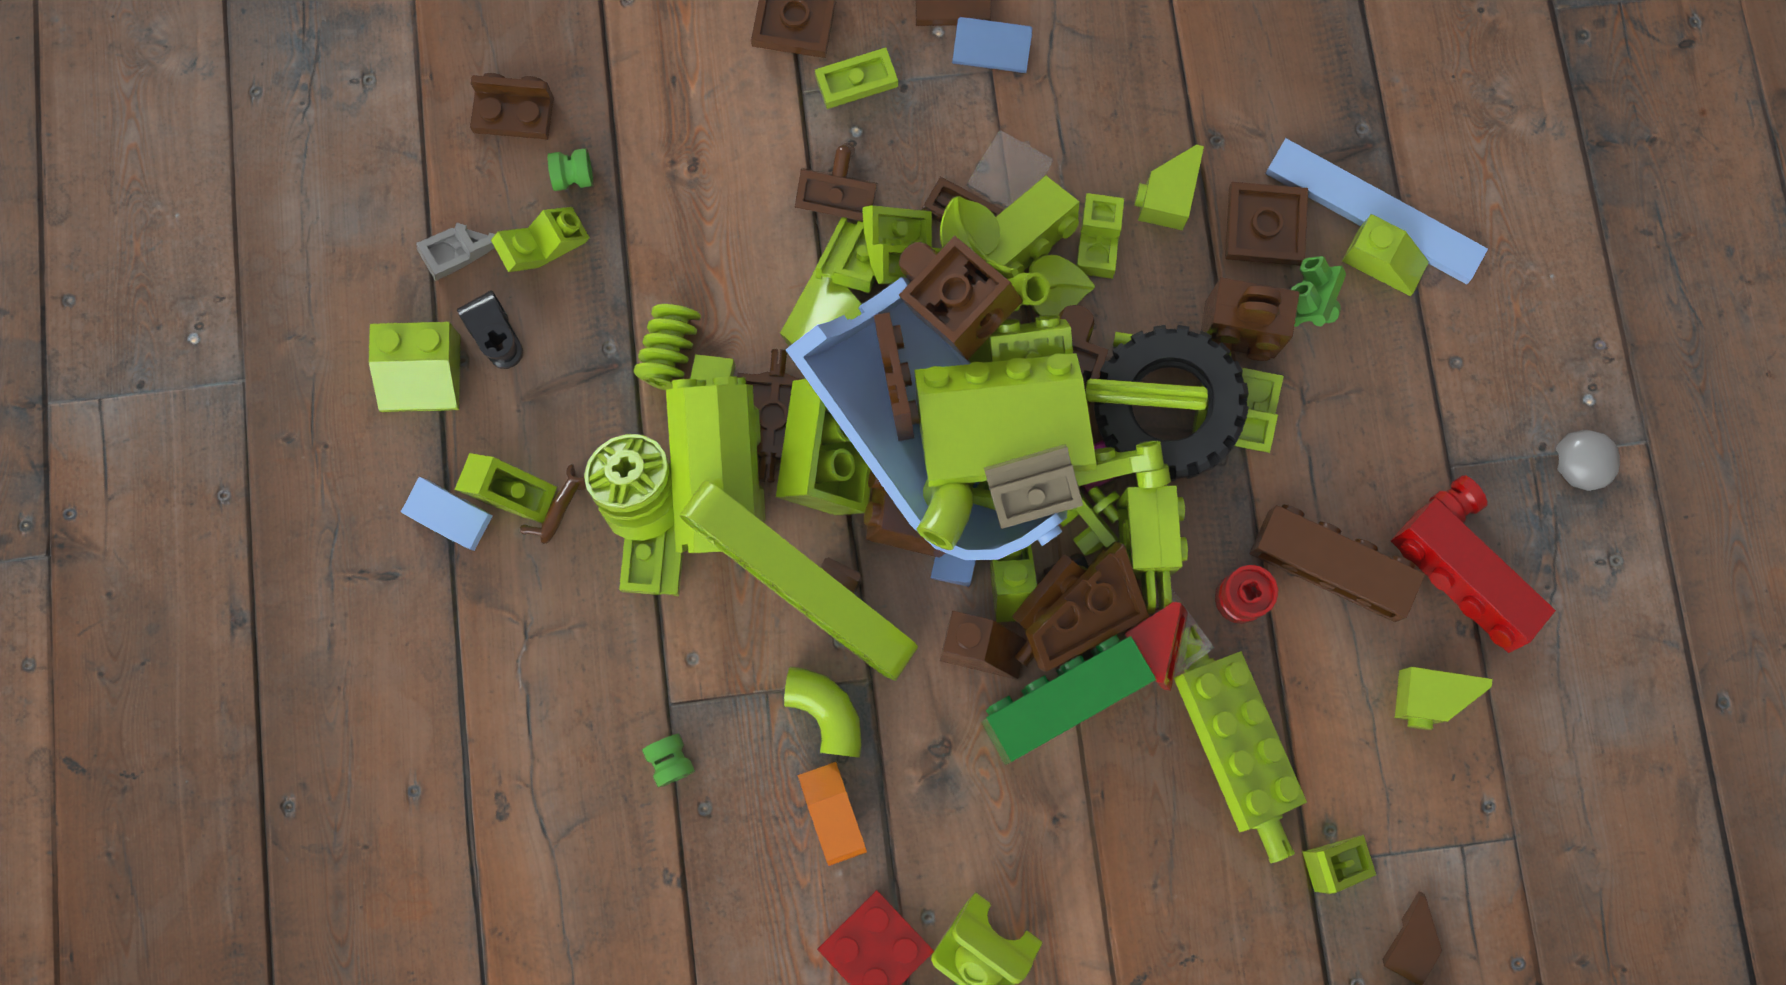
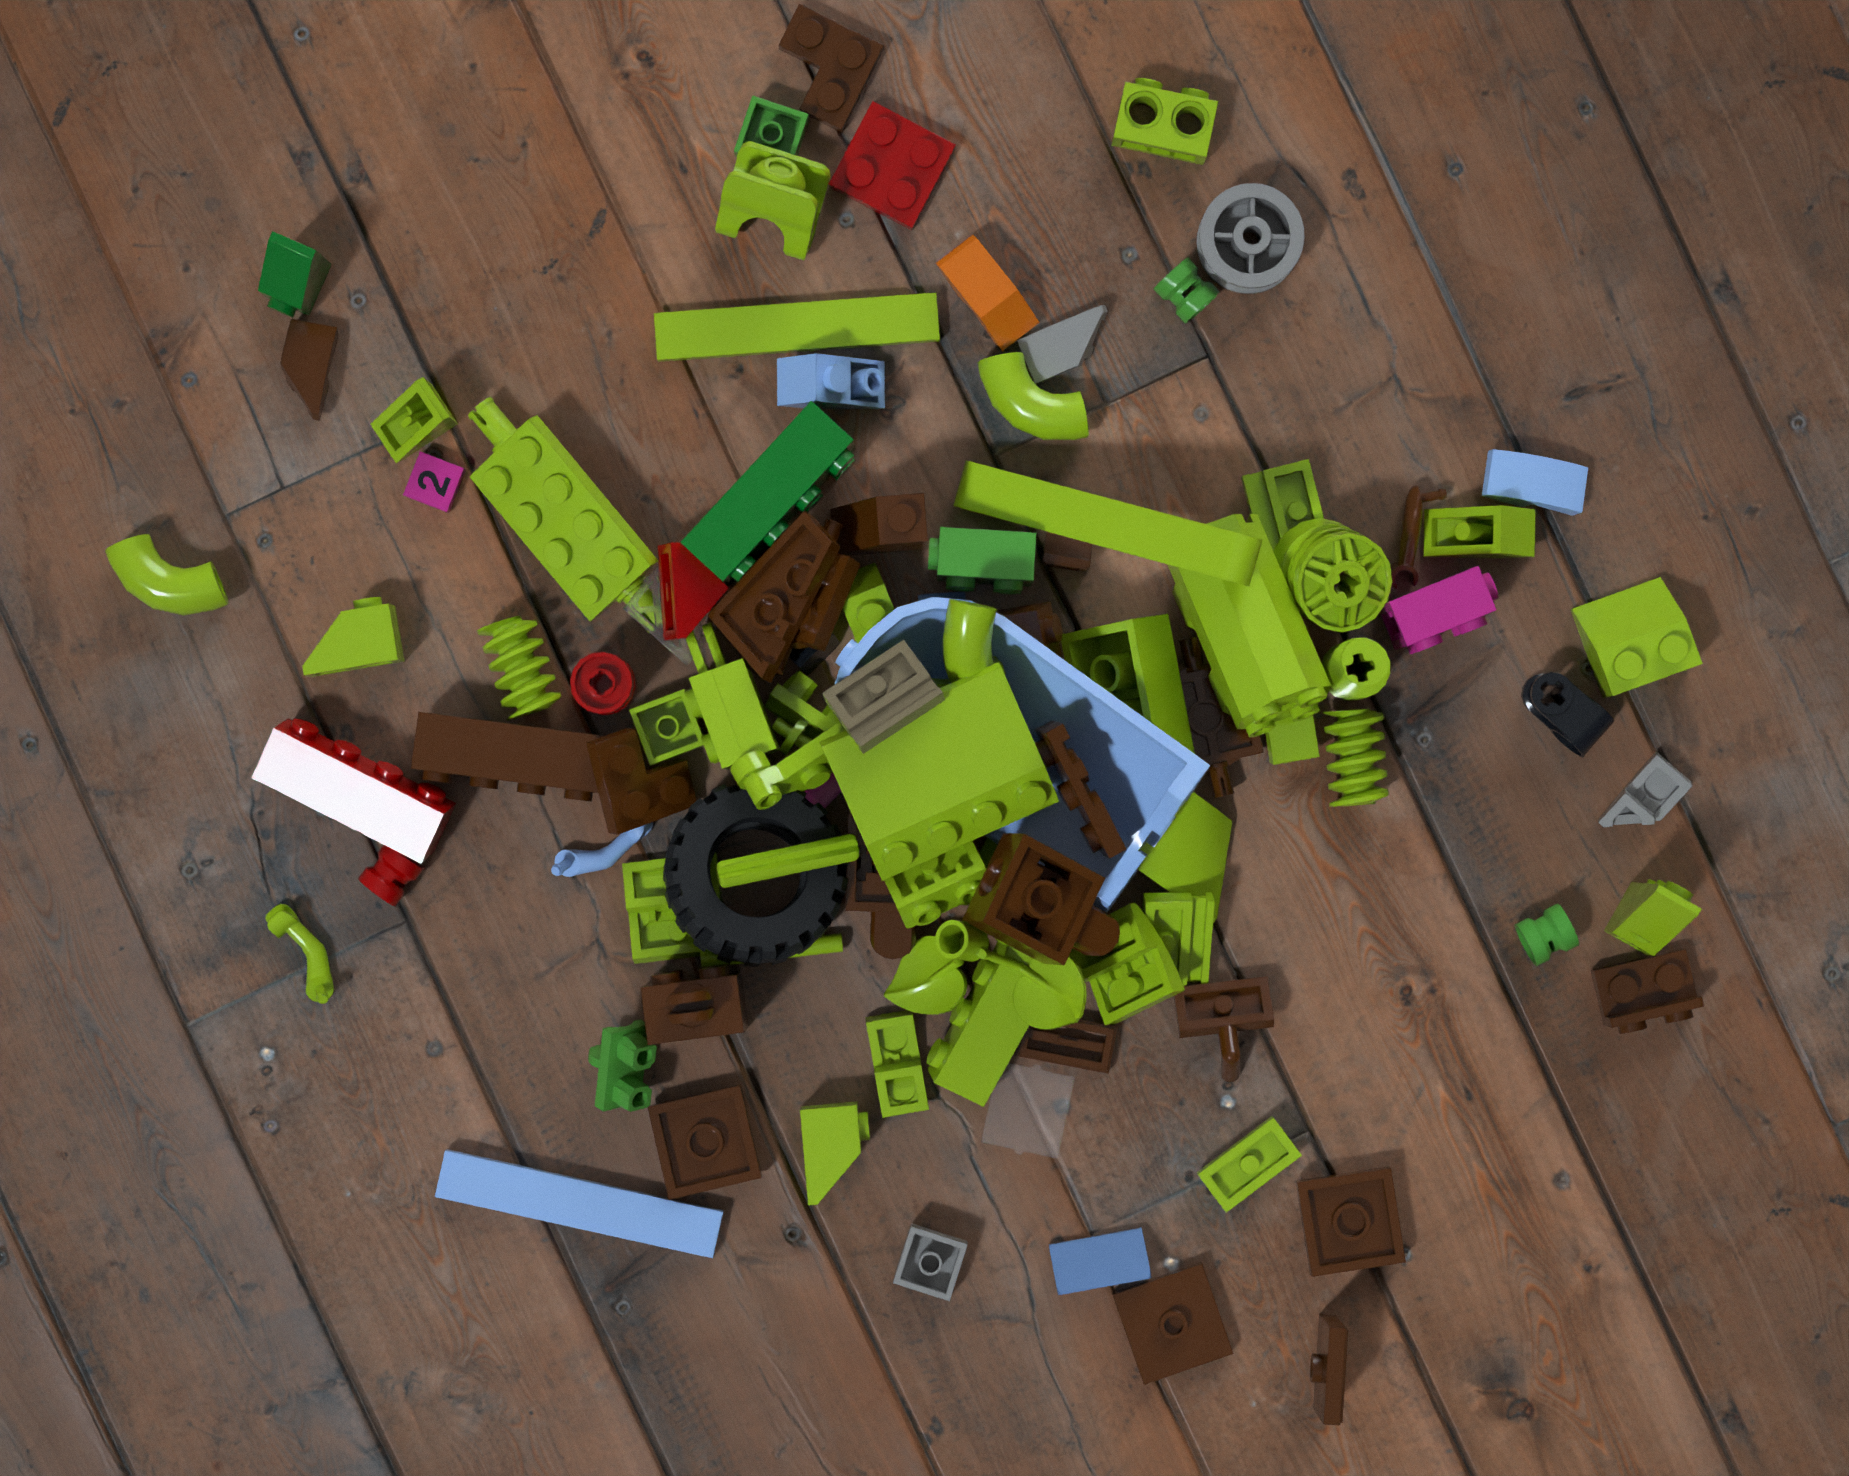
camera: 165 degrees right, 10 degrees up
(483, 151) = (1652, 915): none -> lime slope
(546, 239) = (1550, 838): lime slope -> none
(557, 433) = (1448, 604): none -> dark pink brick
(576, 785) = (1246, 266): none -> light grey wheel
(641, 407) = (1356, 651): none -> lime piece
(641, 899) = (1162, 135): none -> lime brick
(785, 750) = (1062, 344): none -> light grey slope
(908, 591) = (983, 557): none -> bright green brick
(986, 780) = (830, 382): none -> light blue slope
(999, 838) = (796, 327): none -> lime tile
(1120, 83) = (930, 1262): none -> light grey piece
(1207, 545) = (667, 727): none -> lime piece
(1248, 497) = (628, 790): none -> reddish brown plate
(1301, 465) = (576, 862): none -> light blue piece
(1309, 630) = (519, 665): none -> lime piece
(1336, 807) = (434, 482): none -> dark pink tile
(1386, 255) = (550, 1147): lime slope -> none
(1535, 438) = (319, 978): none -> lime piece
(1587, 793) = (161, 584): none -> lime cylinder
(1588, 459) = (253, 976): light grey hair -> none

